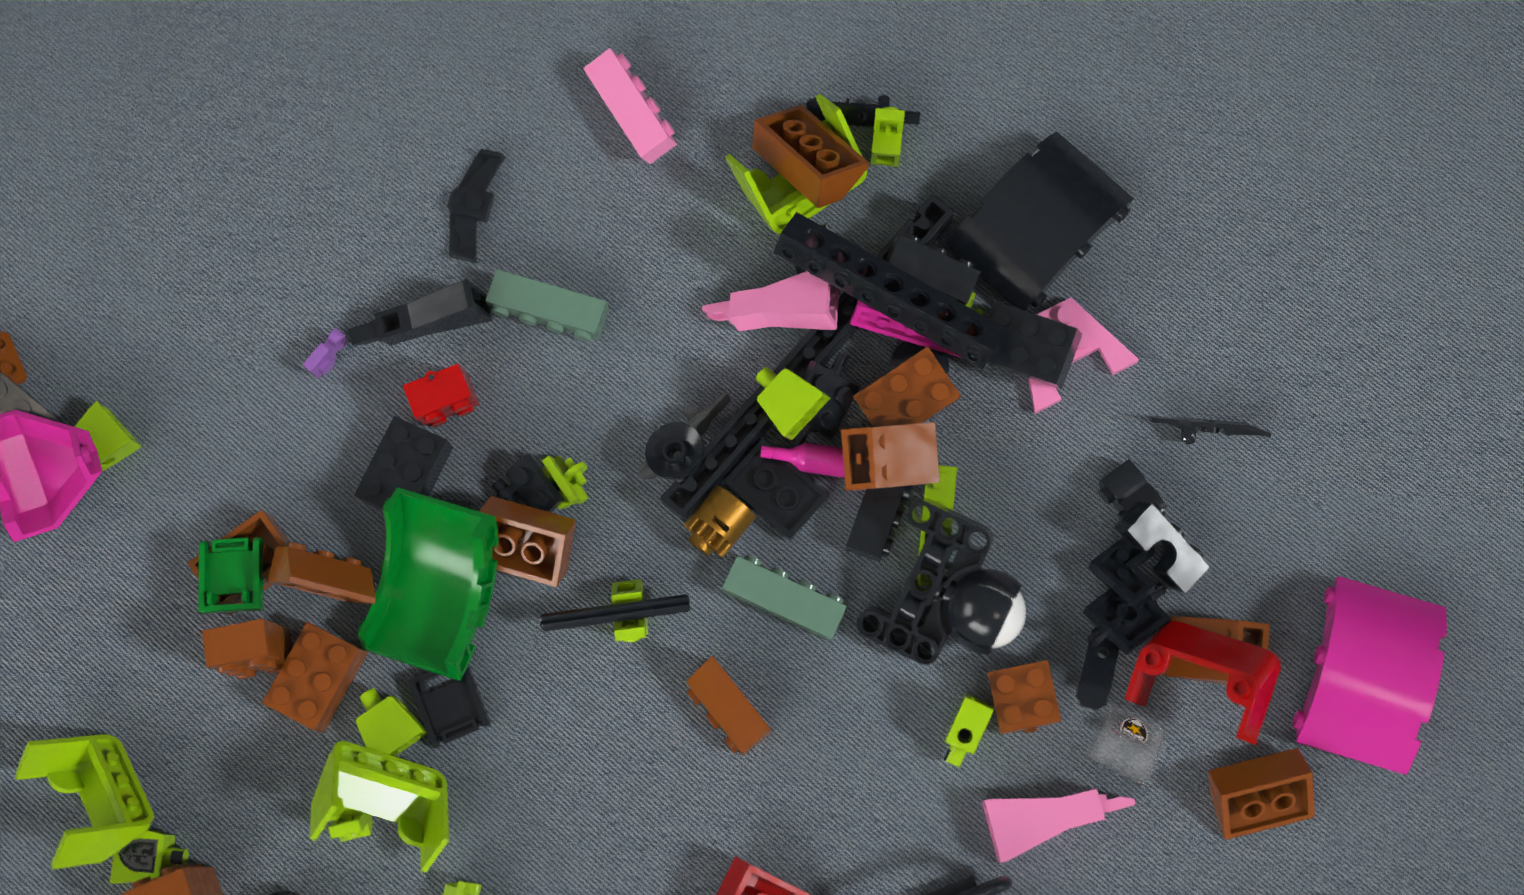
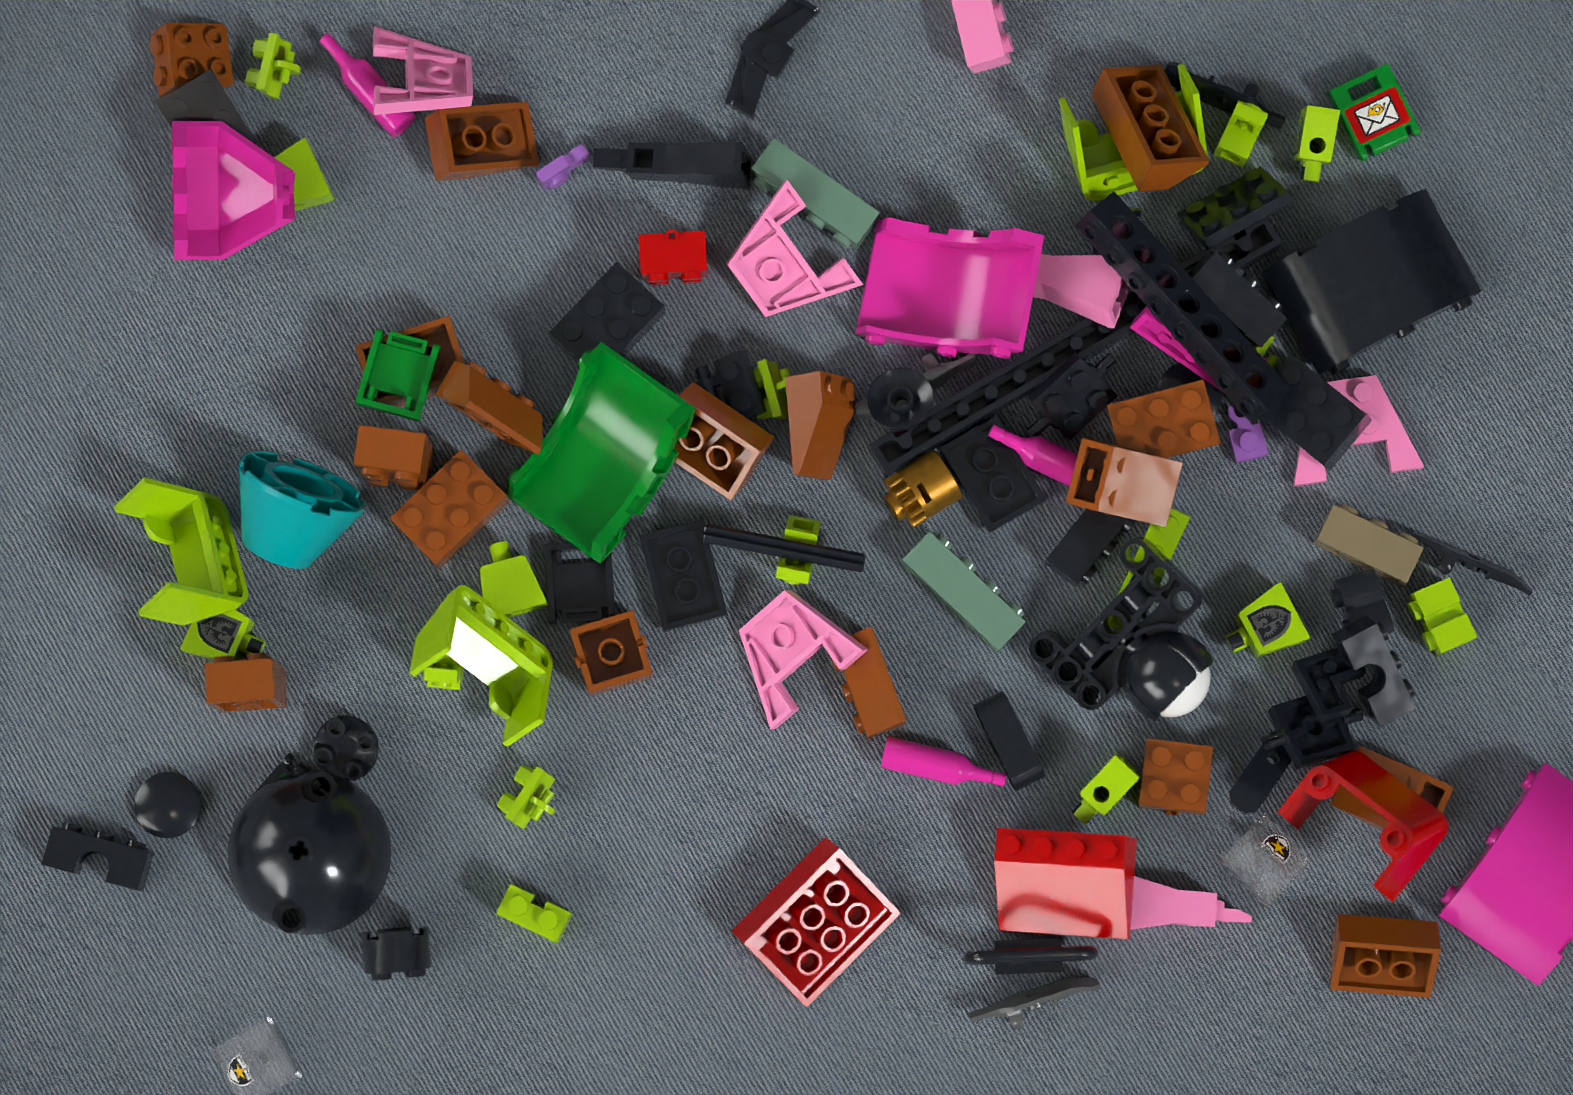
camera: 10 degrees right, 5 degrees up
(56, 351) = (275, 67): none -> lime hips
(145, 344) = (361, 81): none -> dark pink piece
(171, 724) = (293, 508): none -> teal cone
(188, 316) = (433, 75): none -> bright pink wing
(249, 354) = (481, 140): none -> dark orange slope
(494, 756) = (611, 653): none -> dark orange brick
(531, 377) = (774, 268): none -> bright pink wing
(537, 667) = (683, 576): none -> black plate
(610, 493) = (819, 418): none -> dark orange slope
(642, 692) = (785, 638): none -> bright pink wing
(686, 345) = (949, 288): none -> dark pink panel
(789, 400) = (1039, 388): lime torso -> none
(809, 757) = (935, 763): none -> dark pink piece
(868, 715) = (1009, 741): none -> black beam
(903, 198) = (1234, 207): none -> black plate
(950, 109) = (1320, 126): none -> lime torso
(960, 826) = (1065, 882): none -> slope
(981, 387) = (1246, 440): none -> medium lavender plate
(995, 90) = (1377, 117): none -> container
(1056, 538) = (1268, 625): none -> lime torso
(1117, 440) = (1368, 544): none -> dark tan brick
(1201, 481) = (1441, 617): none -> lime brick

